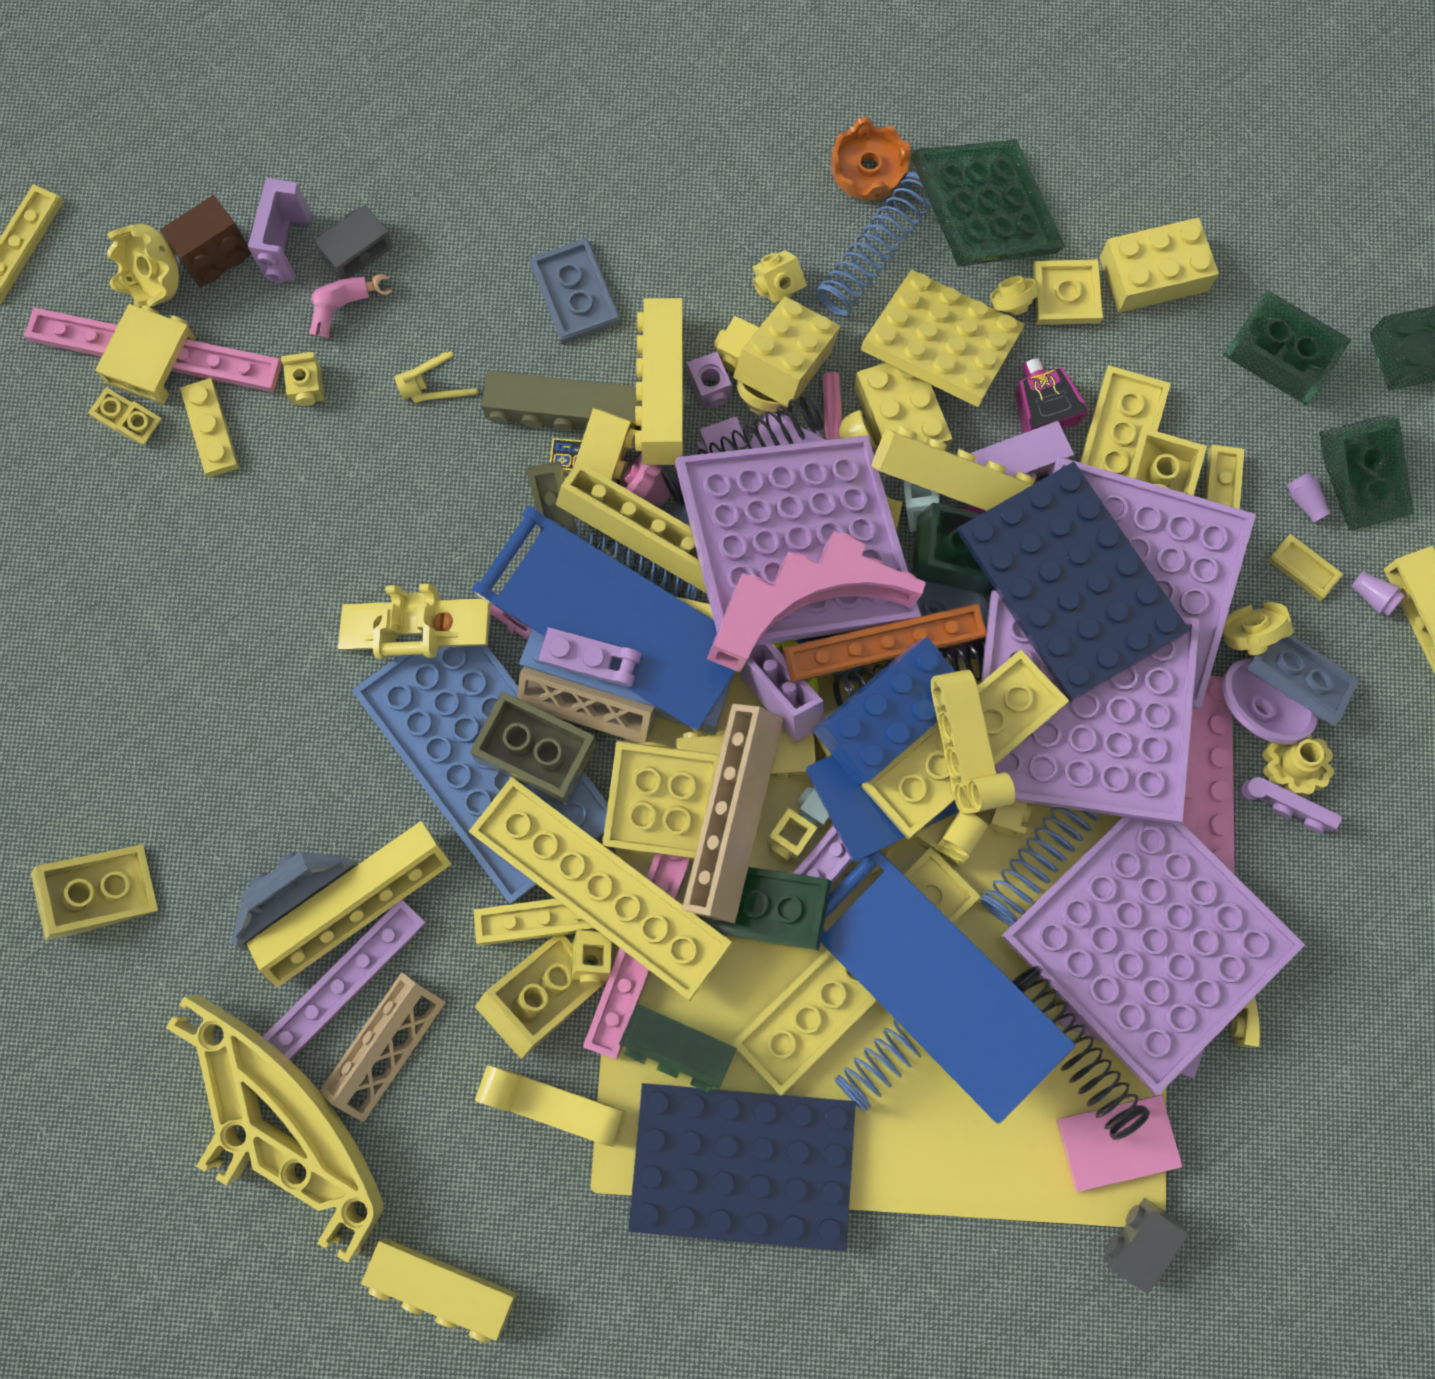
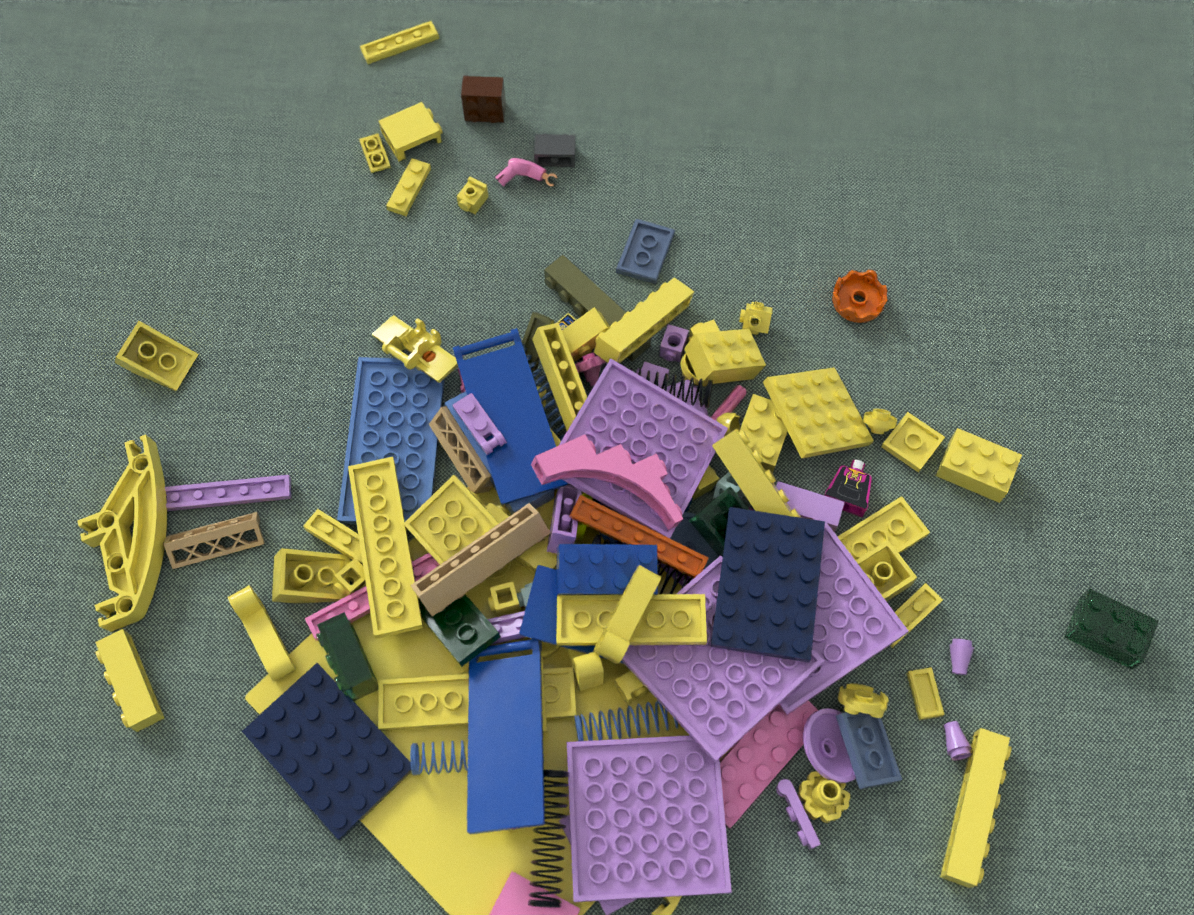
camera: 40 degrees right, 10 degrees down
(144, 264) = (446, 89): light yellow plate -> none
(195, 358) = (431, 150): bright pink plate -> none
(278, 208) = (521, 114): lavender panel -> none
(283, 890) = (239, 428): sand blue wedge -> none
(348, 904) = (262, 456): light yellow brick -> none
(412, 382) = (524, 235): light yellow plant -> none
(534, 747) = (416, 450): olive brick -> none
(823, 297) = (775, 345): medium blue piece -> none
(987, 202) = (905, 361): clear green plate -> none
(1287, 347) = (1016, 563): clear green brick -> none
(1368, 470) = (1009, 670): clear green slope -> none

